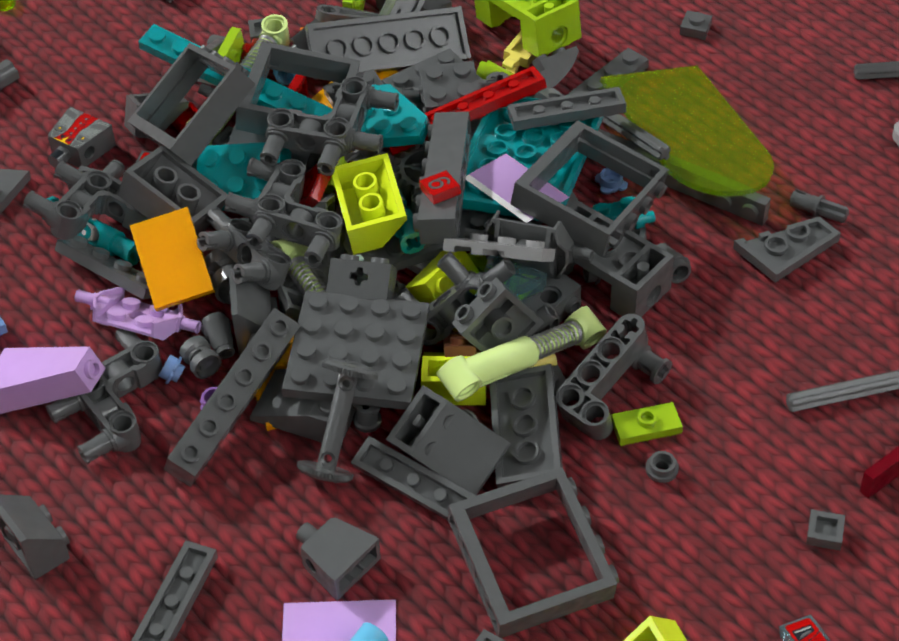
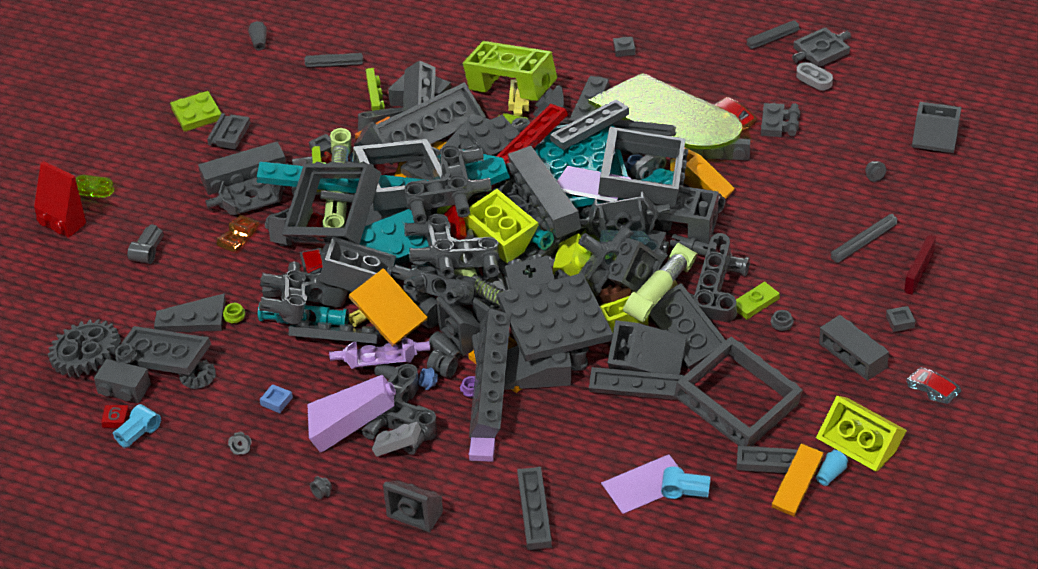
camera: 25 degrees left, 5 degrees down
(17, 197) = (234, 313): none -> lime plate
(72, 436) = (395, 439): none -> light grey plate
(79, 139) = (246, 260): dark grey torso -> none
(104, 101) = (239, 232): none -> clear orange slope
(125, 62) = (236, 197): none -> dark grey plate
(127, 24) = (238, 166): none -> dark grey brick
(170, 492) = (482, 449): none -> lavender tile
(337, 421) = (573, 361): dark grey hose -> none
(337, 554) = (618, 441): dark grey torso -> none
(440, 187) = (554, 195): red tile -> none
(505, 247) = (614, 220): light grey wing -> none
(606, 312) = (693, 244): none -> dark grey pin
(615, 188) = (646, 166): none -> light grey plate
(681, 226) = (702, 175): none -> light orange slope
(734, 547) = (854, 347): none -> dark grey brick
(786, 163) = (742, 113): none -> red slope
(789, 249) = (776, 168): dark grey wing -> none
(818, 206) = (779, 135): dark grey axle -> none
(831, 176) = (773, 120): none -> dark grey plate

